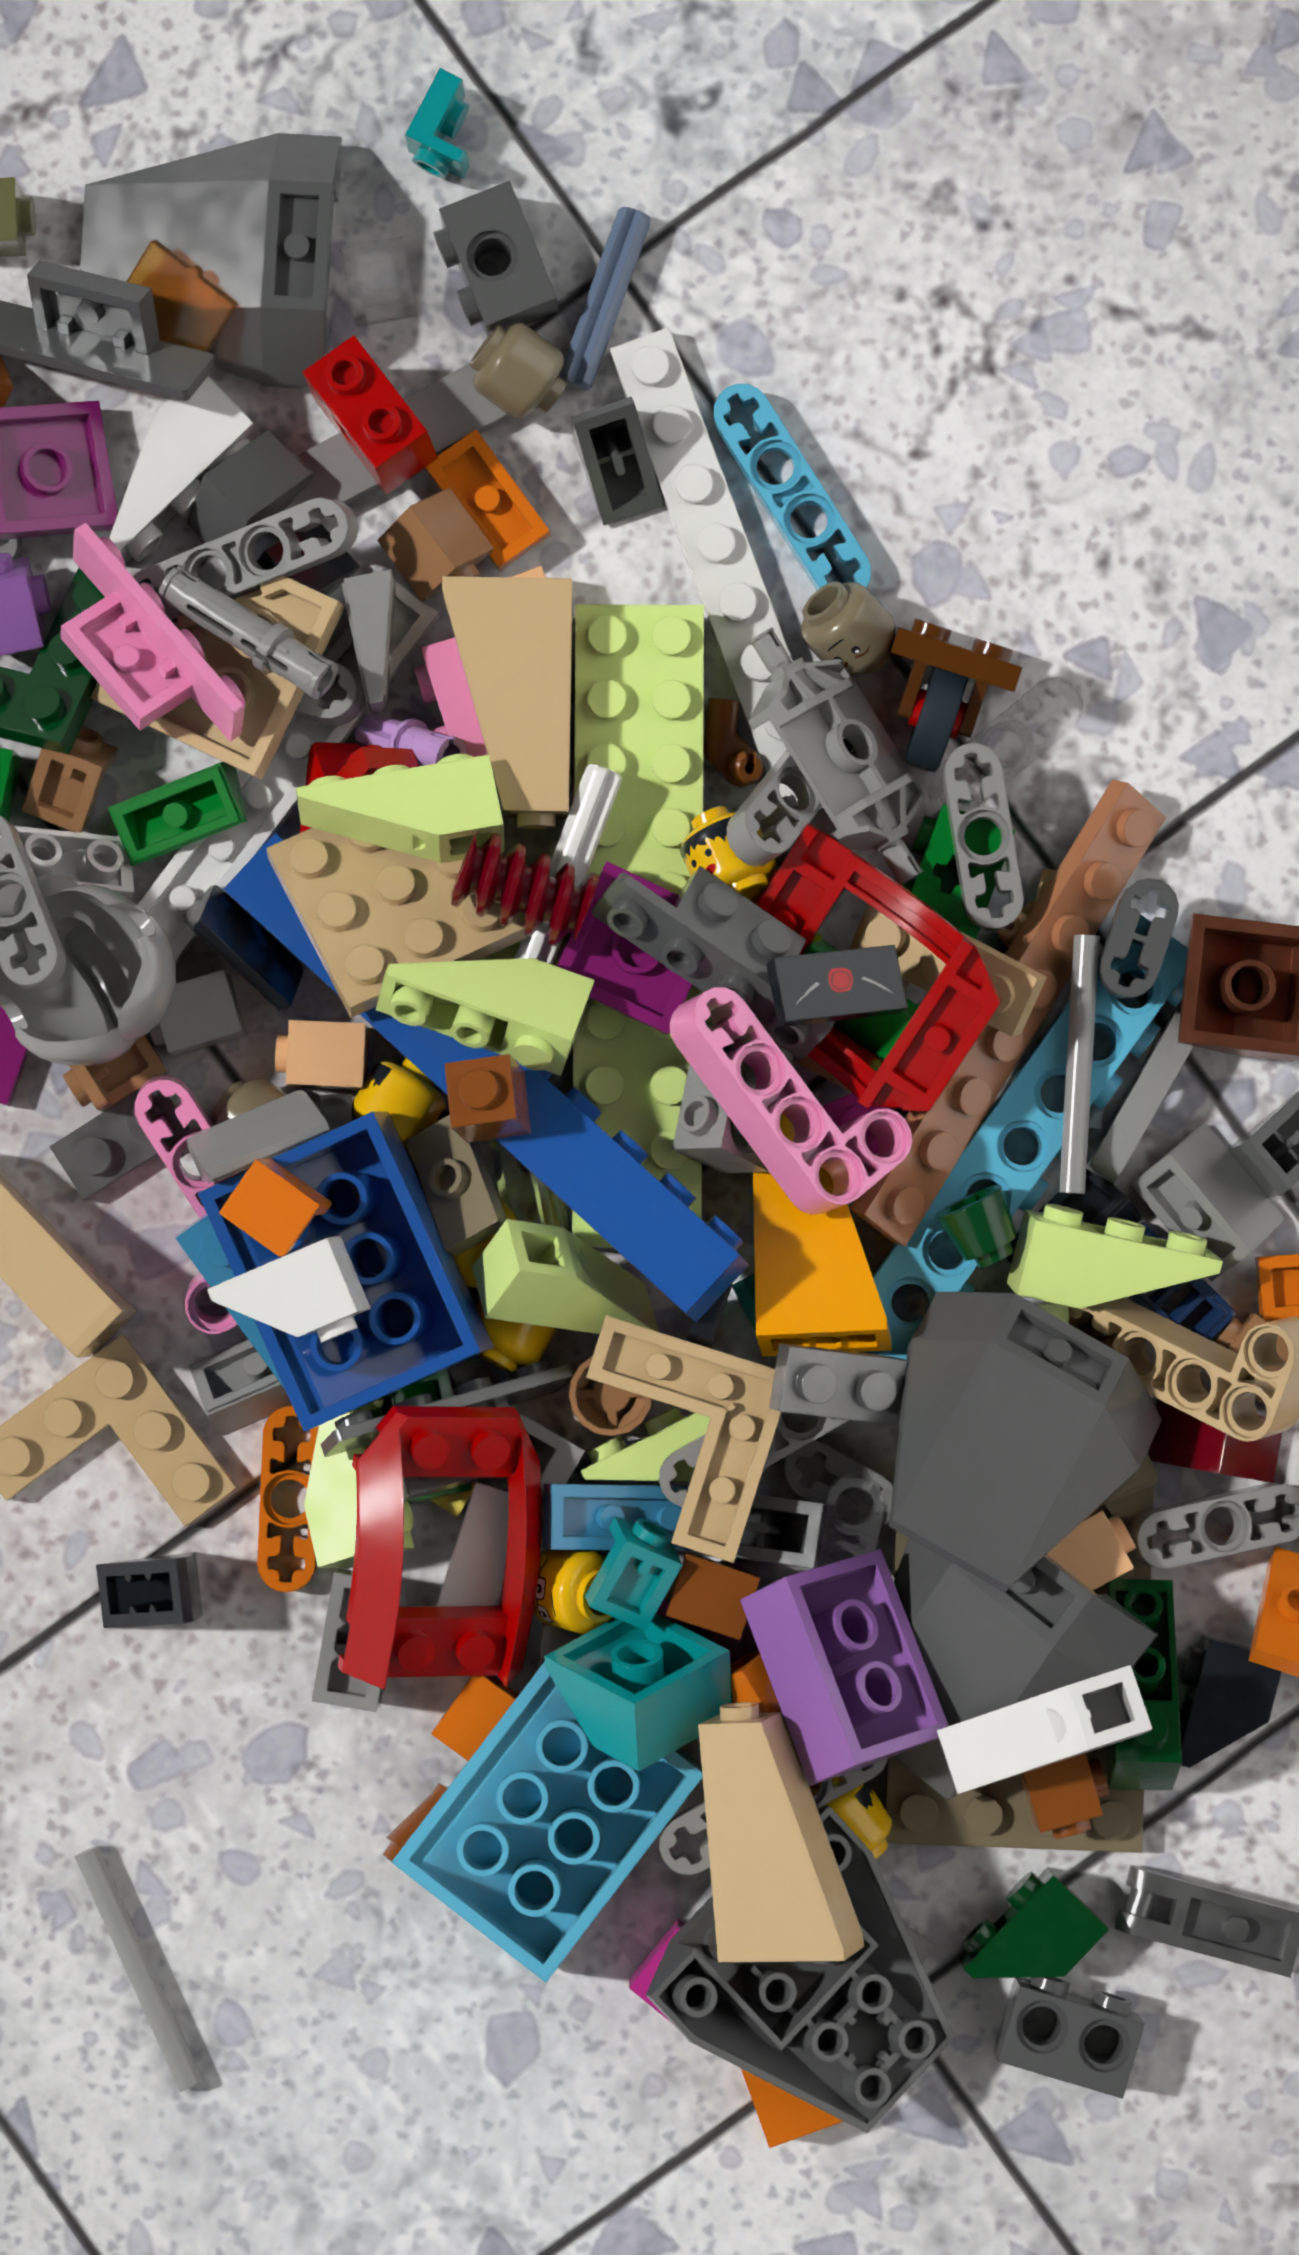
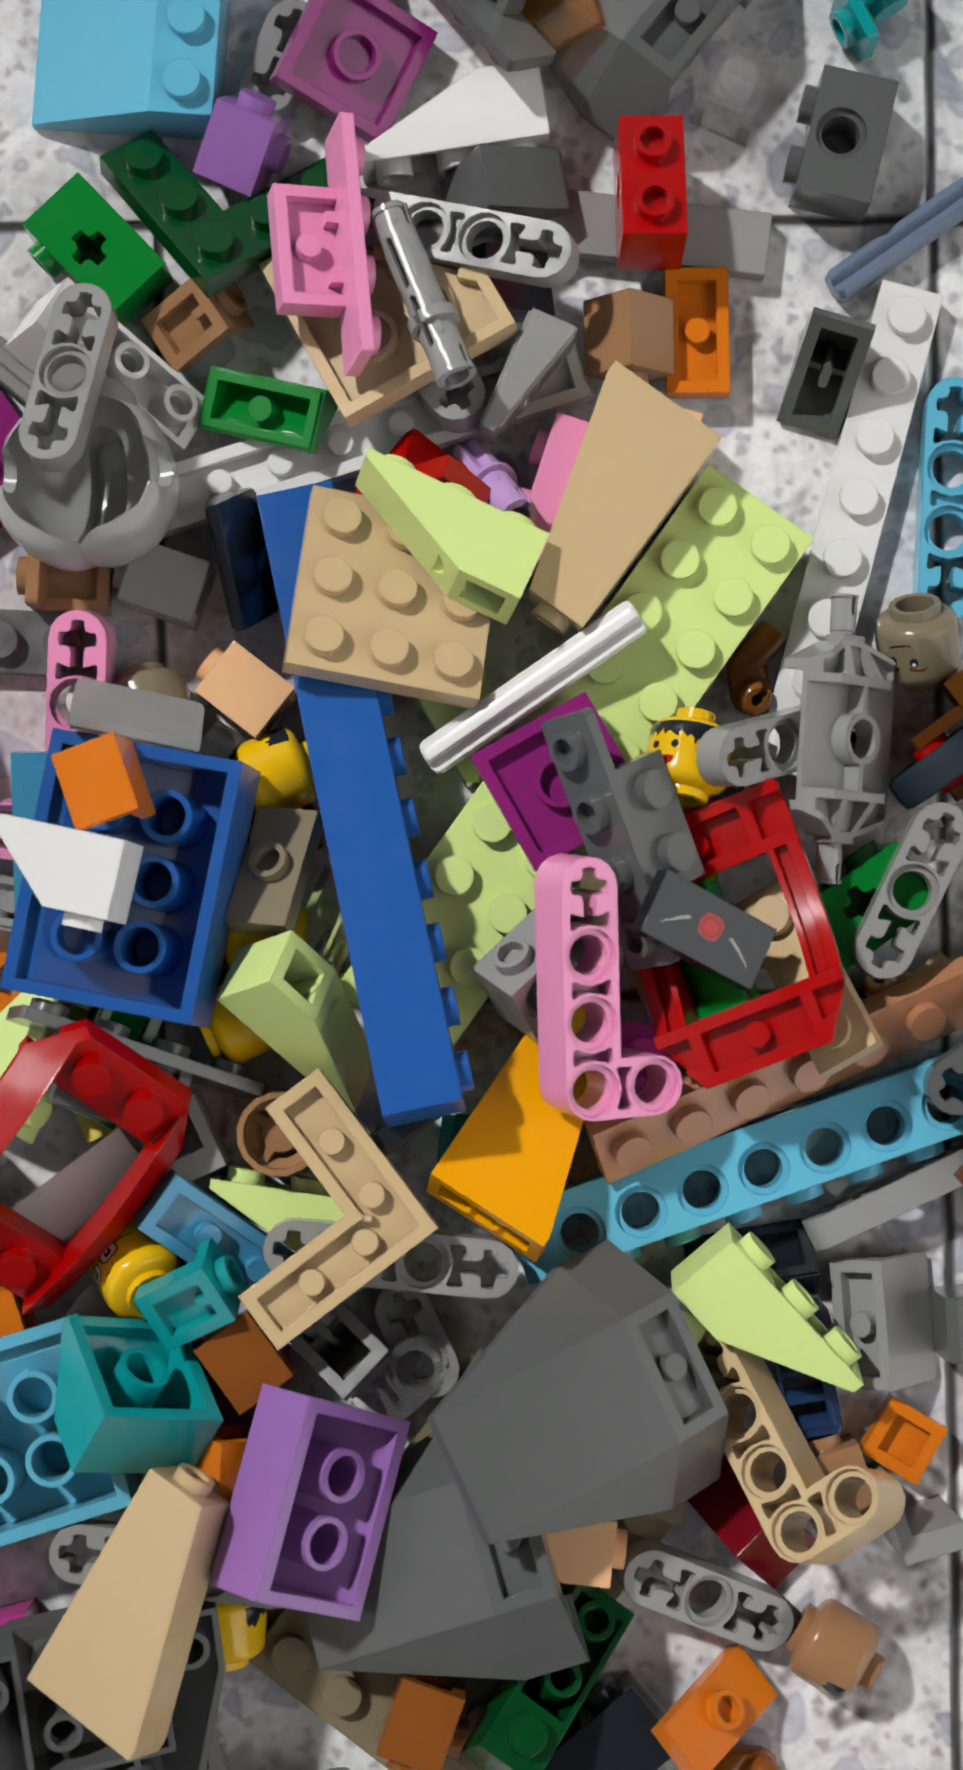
camera: 35 degrees right, 0 degrees up
(487, 1098) = (344, 817): dark orange brick -> none
(492, 1005) = (410, 747): yellowish green slope -> none
(518, 370) = (796, 243): dark tan head -> none
(524, 888) = (498, 664): dark red piece -> none
(838, 1384) = (470, 1262): flat silver plate -> none
(980, 1226) = (682, 1212): dark green hat -> none
(1044, 1729) = (439, 1682): white slope -> none
(1079, 1064) = (858, 1135): light grey bar -> none

